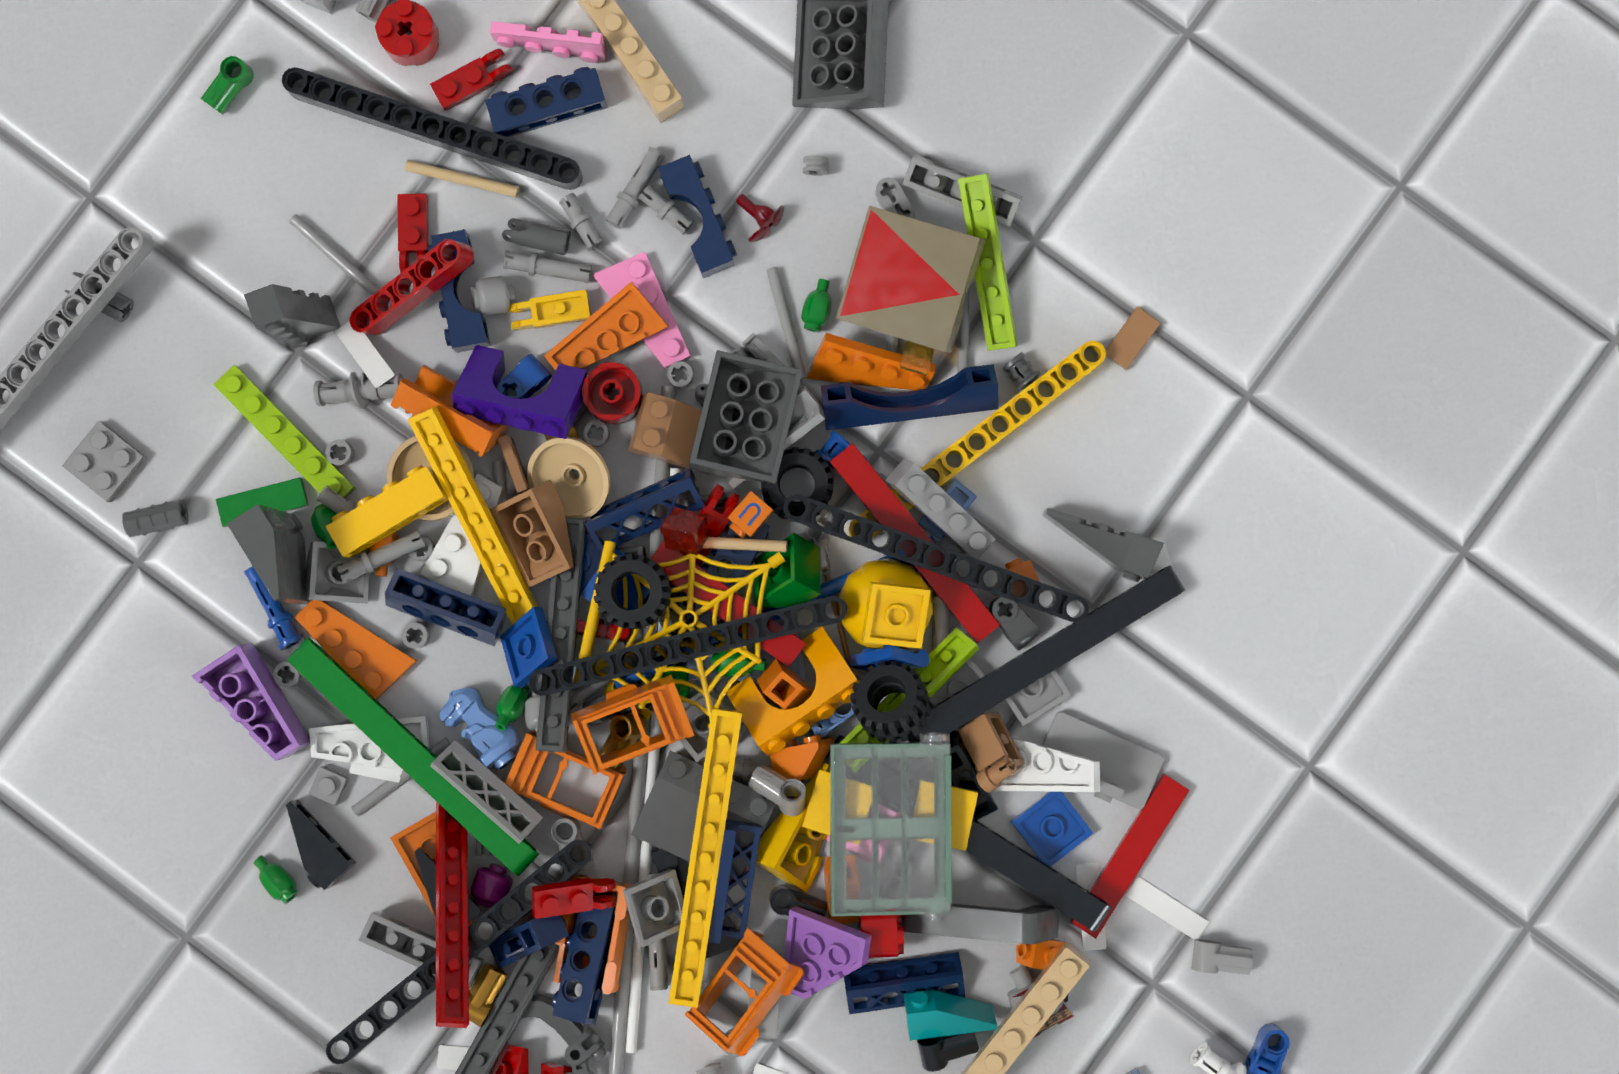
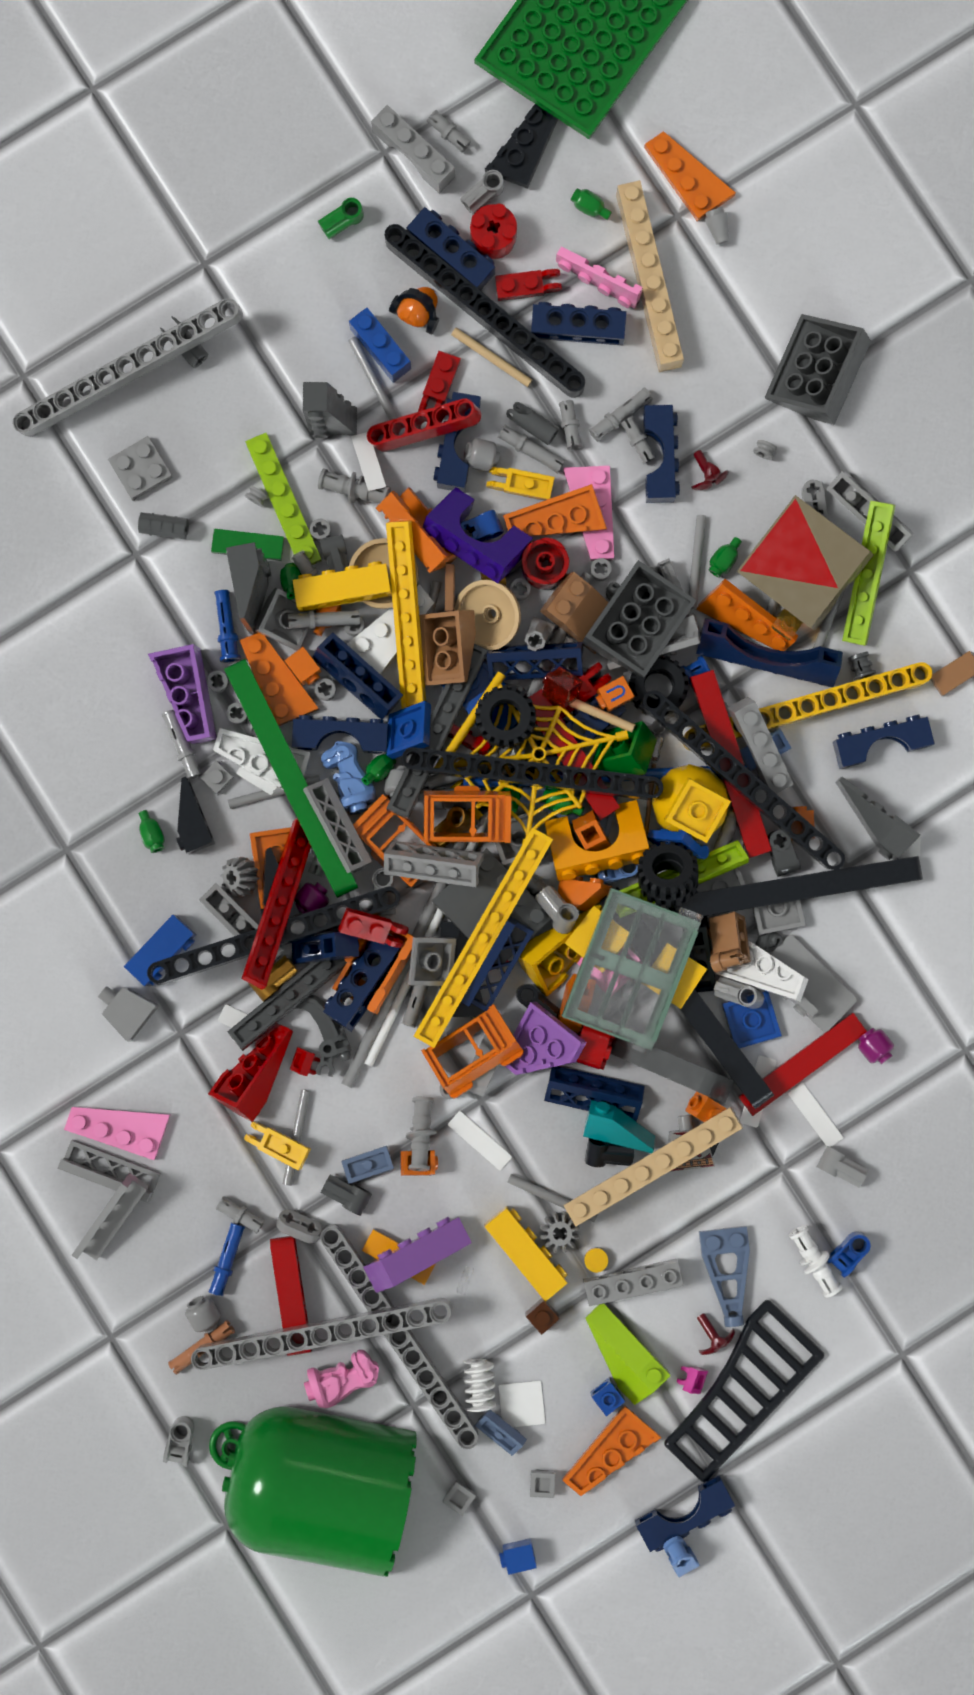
camera: 20 degrees right, 0 degrees up
(250, 442) = (256, 496): none -> light grey bush
(281, 773) = (186, 754): none -> light grey pin
(315, 705) = (237, 721): none -> light grey bush
(326, 213) = (380, 345): none -> blue brick
(329, 50) = (431, 221): none -> dark blue brick
(338, 1009) = (165, 943): none -> blue brick
(353, 155) = (417, 308): none -> cap
(366, 473) = (335, 552): none -> dark grey piece
(380, 619) = (303, 667): none -> orange brick
(397, 893) = (239, 877): none -> light grey gear
(417, 694) = (310, 733): none -> dark blue arch
(613, 796) = (434, 864): none -> light grey fence
(636, 477) = (538, 633): none -> light grey piece
(1024, 804) = (737, 993): none -> light grey piece
(1036, 729) = (769, 940): none -> dark grey arm
(1108, 428) = (912, 735): none -> dark blue arch
(1206, 803) = (876, 1046): none -> magenta head

